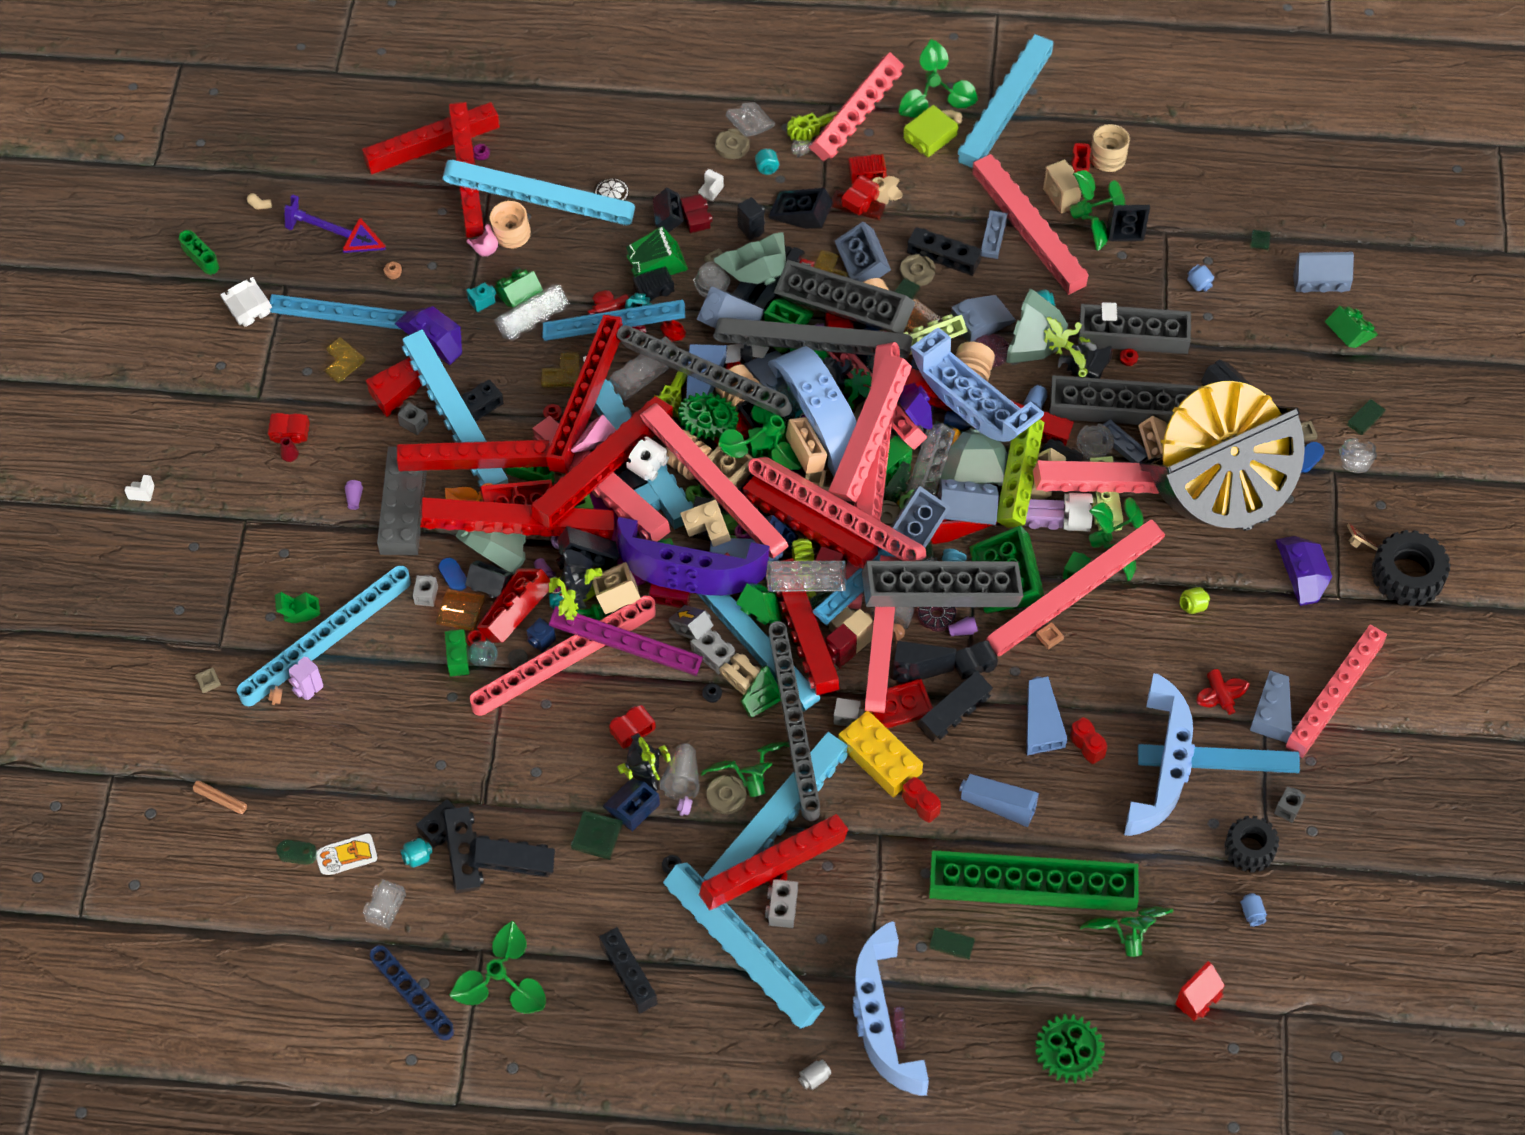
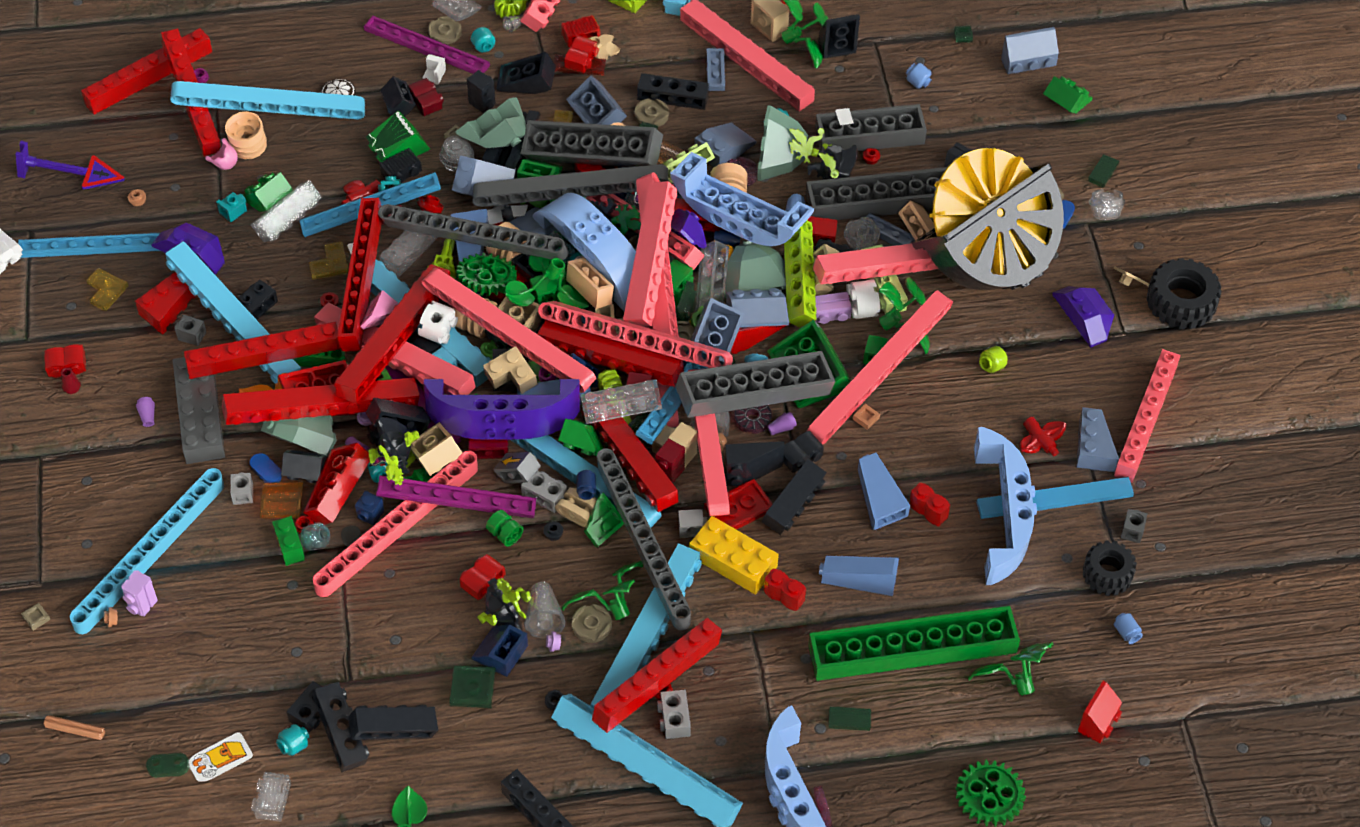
camera: 15 degrees left, 5 degrees down
(297, 609) = (116, 529): green brick -> none
(665, 681) = (506, 529): none -> green wheel
(710, 158) = (425, 45): none -> magenta tile
(752, 654) = (586, 484): none -> dark blue brick

